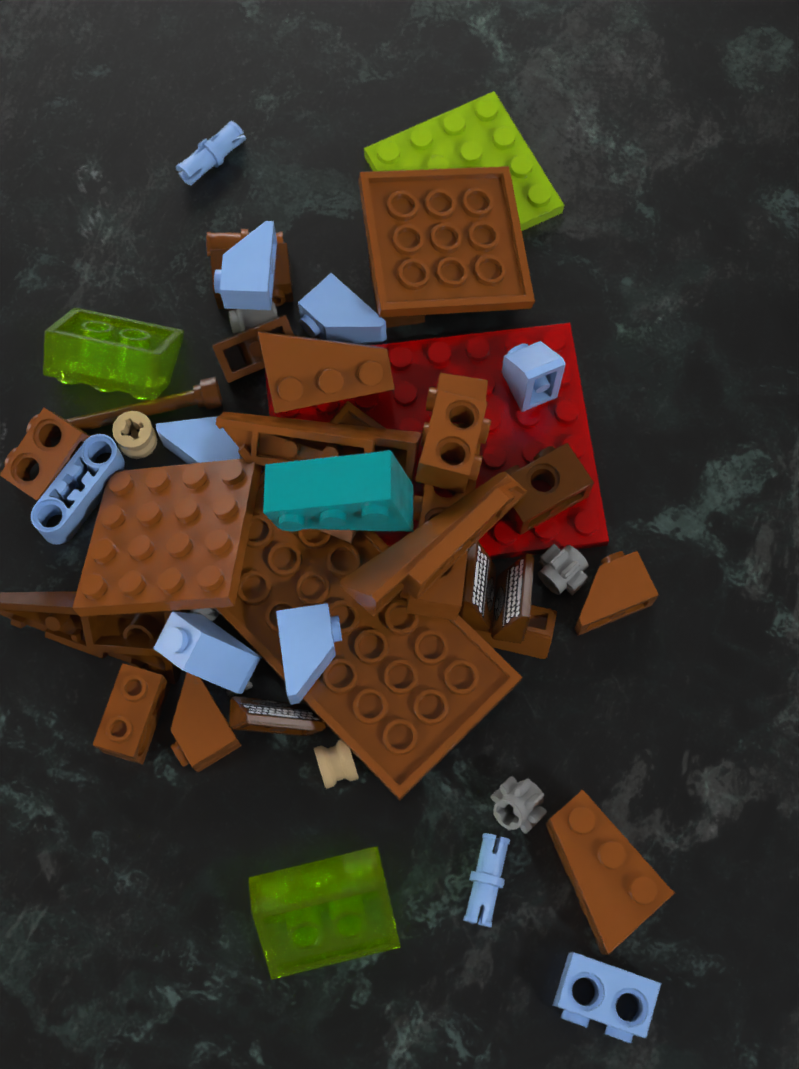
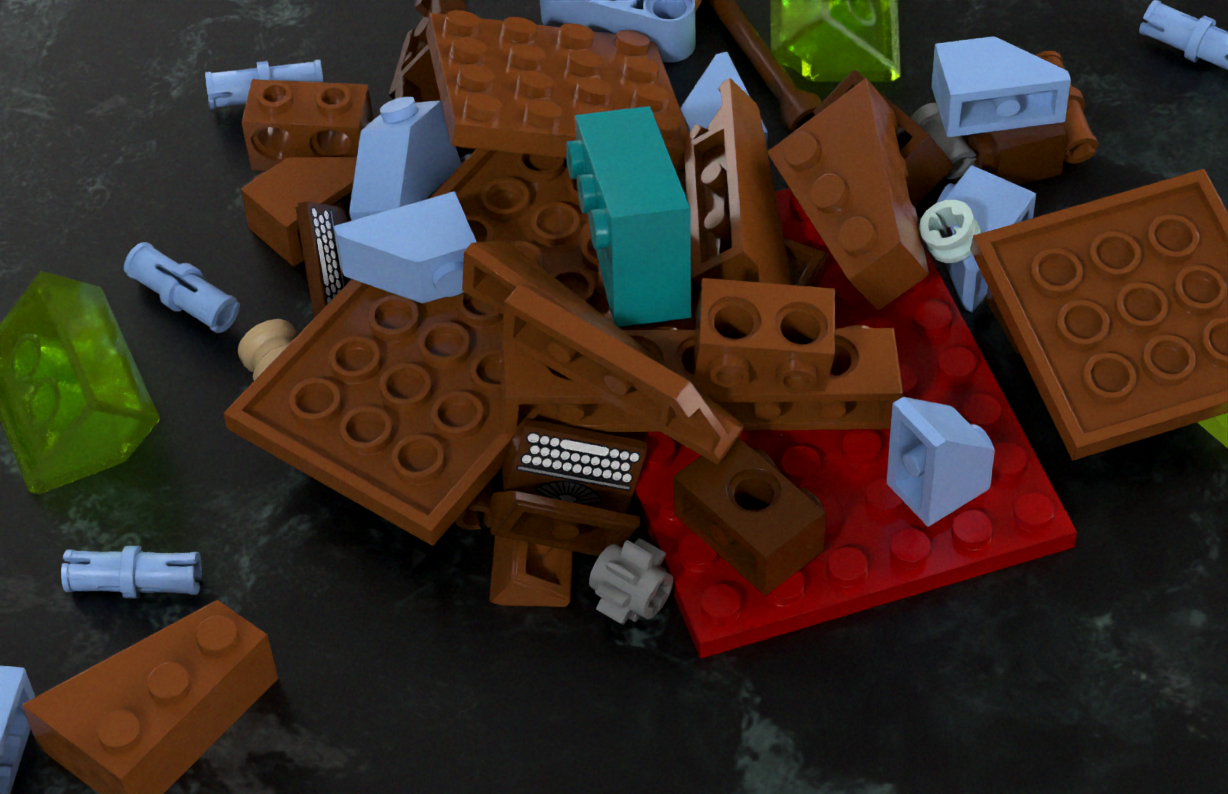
camera: 80 degrees right, 20 degrees down
(72, 742) = (233, 86): none -> light blue pin
(139, 443) = (714, 36): tan wheel -> none
(229, 844) = (181, 287): none -> light blue pin
(349, 315) = (938, 219): none -> light aqua bush
(518, 804) = (245, 579): light grey gear -> none
(616, 591) = (610, 659): dark orange slope -> none

